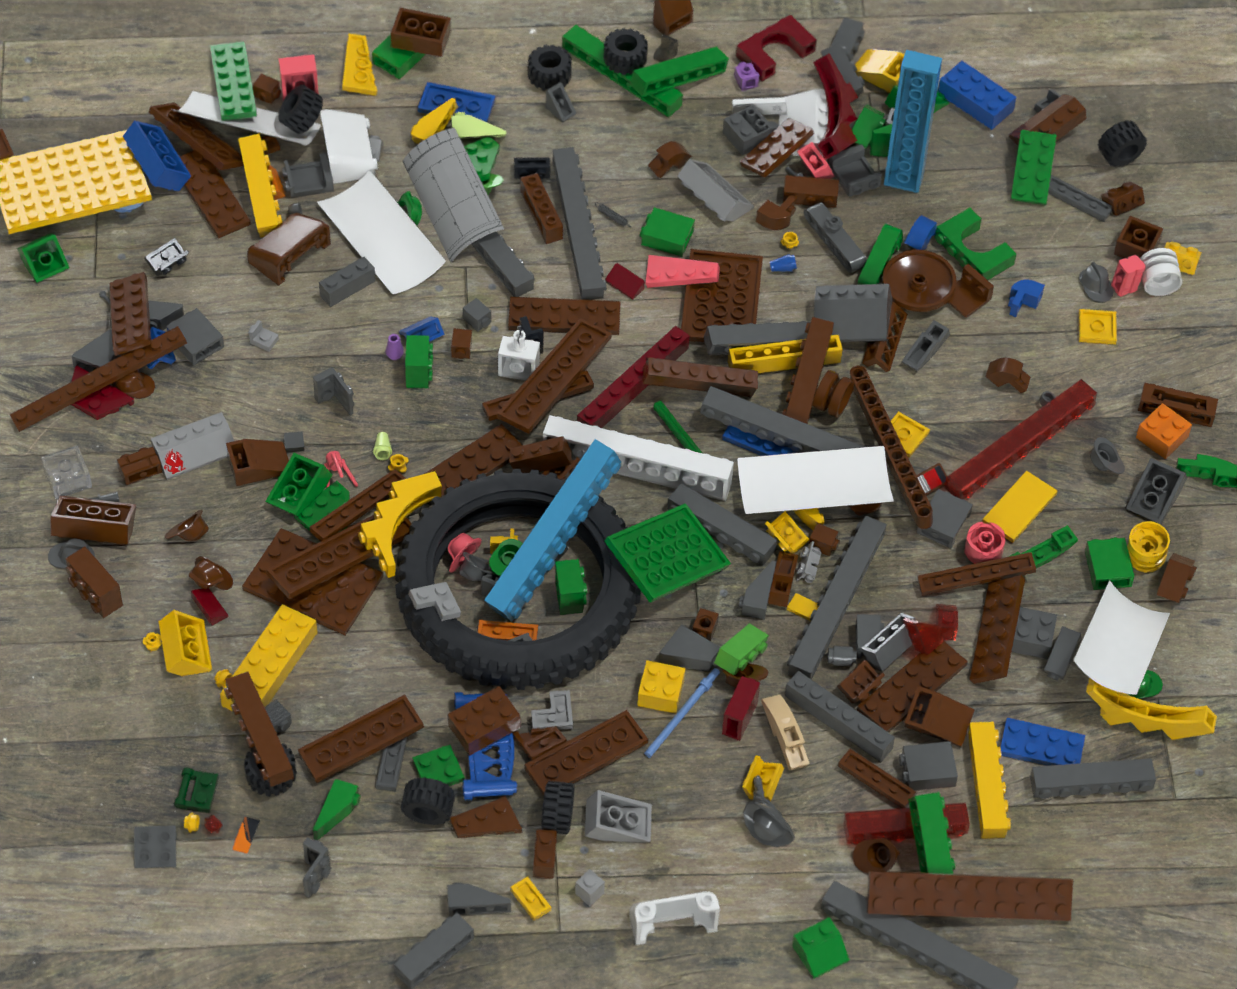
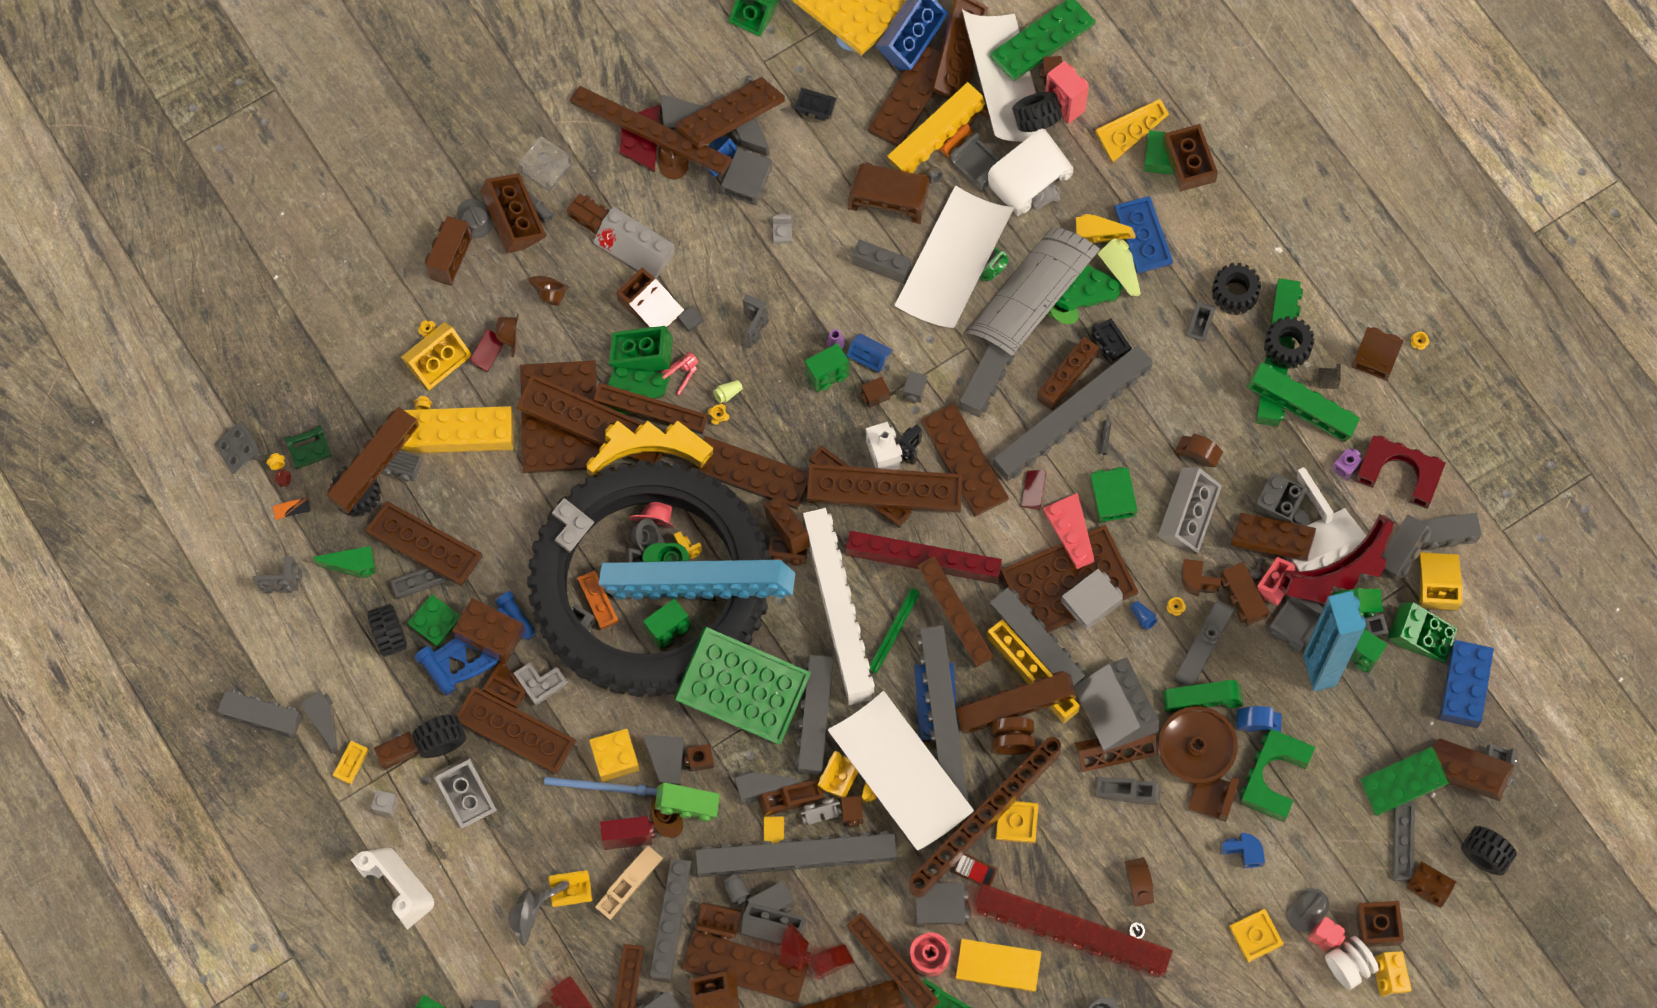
camera: 65 degrees right, 15 degrees up
(486, 819) = (408, 687): reddish brown wing -> none
(751, 284) = (1092, 599): none -> light grey brick

